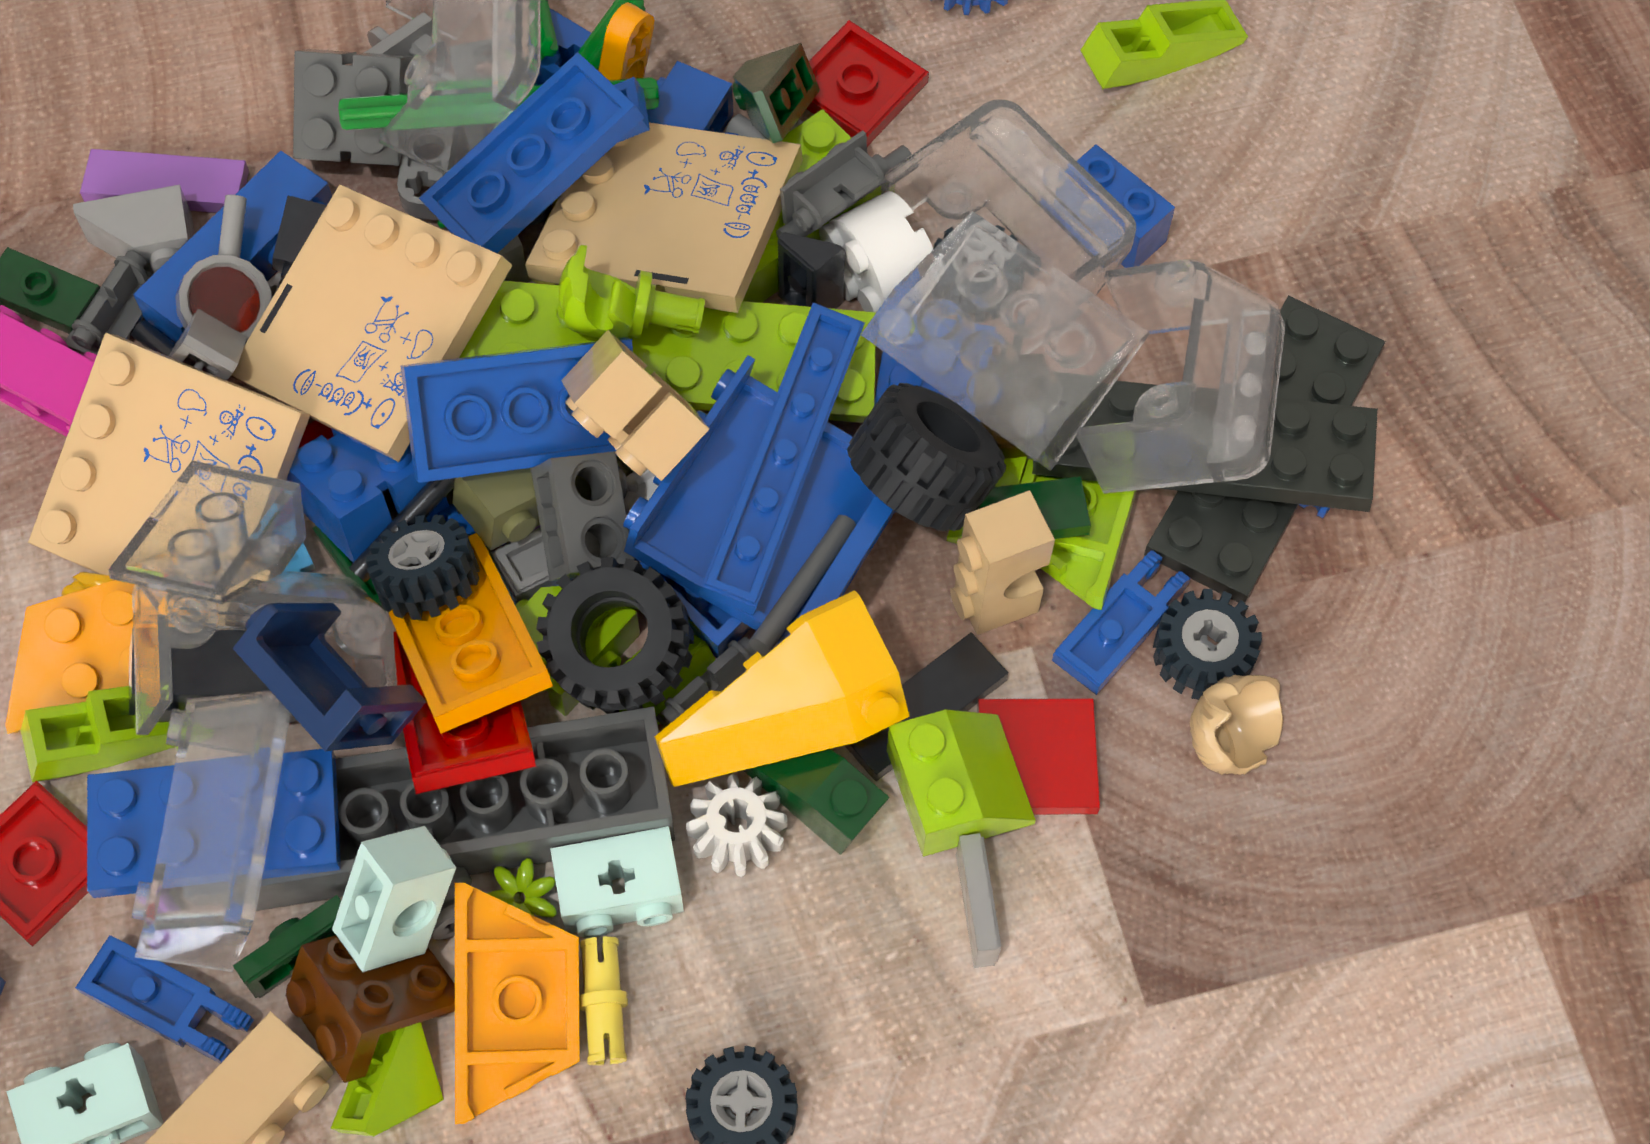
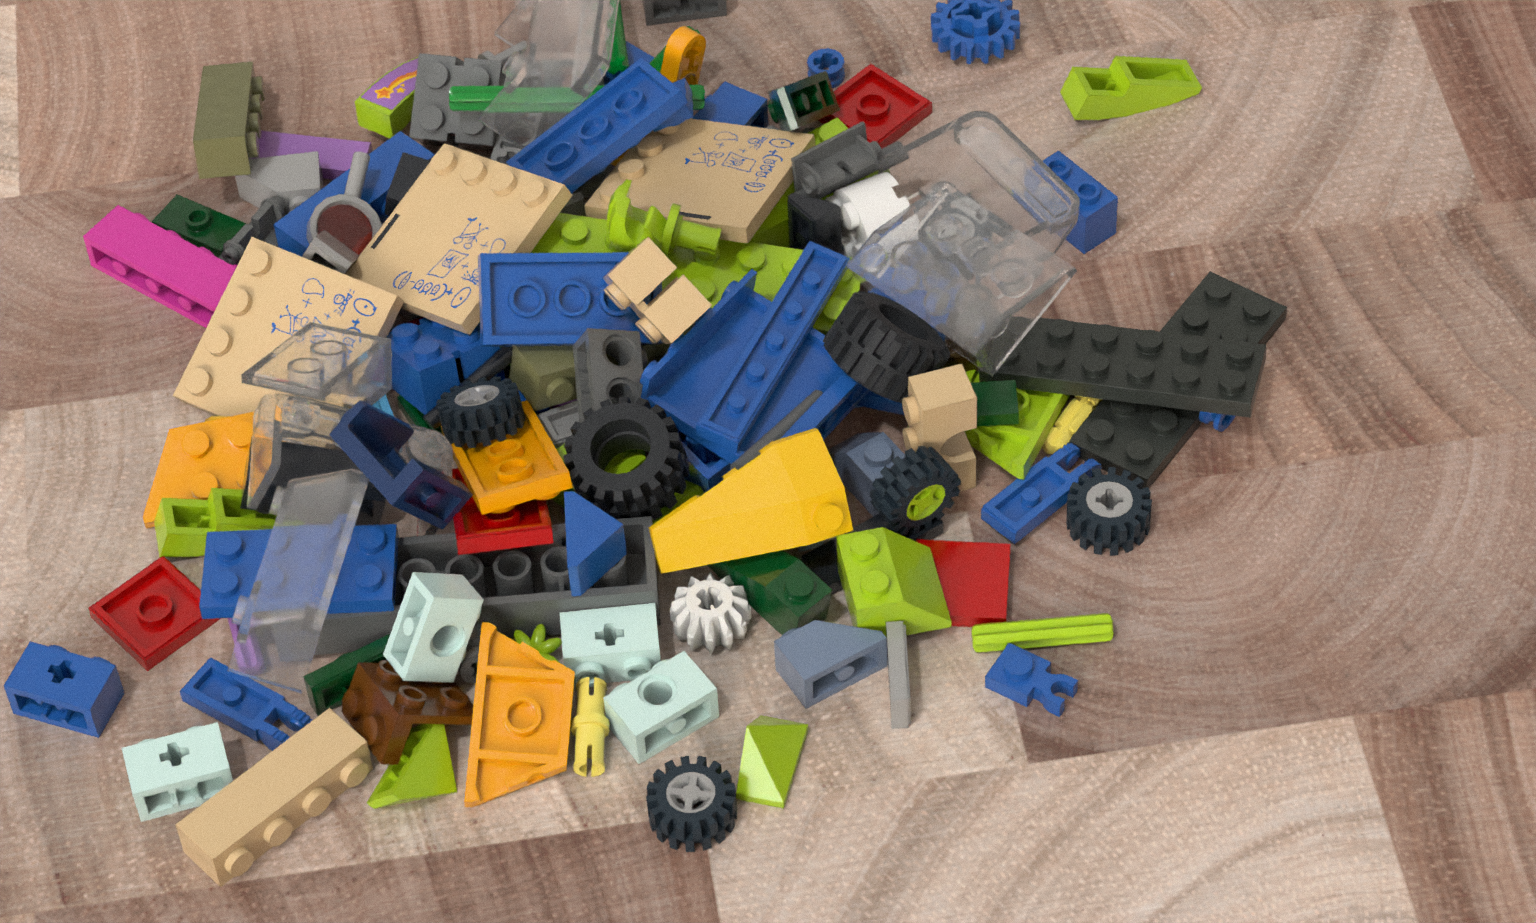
camera: 10 degrees right, 15 degrees down
(61, 146) = (228, 120): none -> olive brick
(263, 104) = (389, 101): none -> slope
(583, 762) = (592, 542): none -> blue slope
(677, 1000) = (685, 705): none -> light aqua brick
(790, 15) = (827, 59): none -> blue bush
(832, 1029) = (770, 760): none -> lime slope
(886, 882) = (827, 658): none -> sand blue slope
(910, 600) = (860, 462): none -> sand blue slope
(976, 646) = (915, 490): none -> black wheel
(1128, 886) = (1027, 677): none -> blue plate
(1143, 523) = (1069, 422): none -> light yellow axle
(1144, 822) = (1042, 632): none -> lime axle
(1224, 408) = (1125, 329): clear windscreen -> none
(1237, 723) = (1124, 561): tan hair -> none

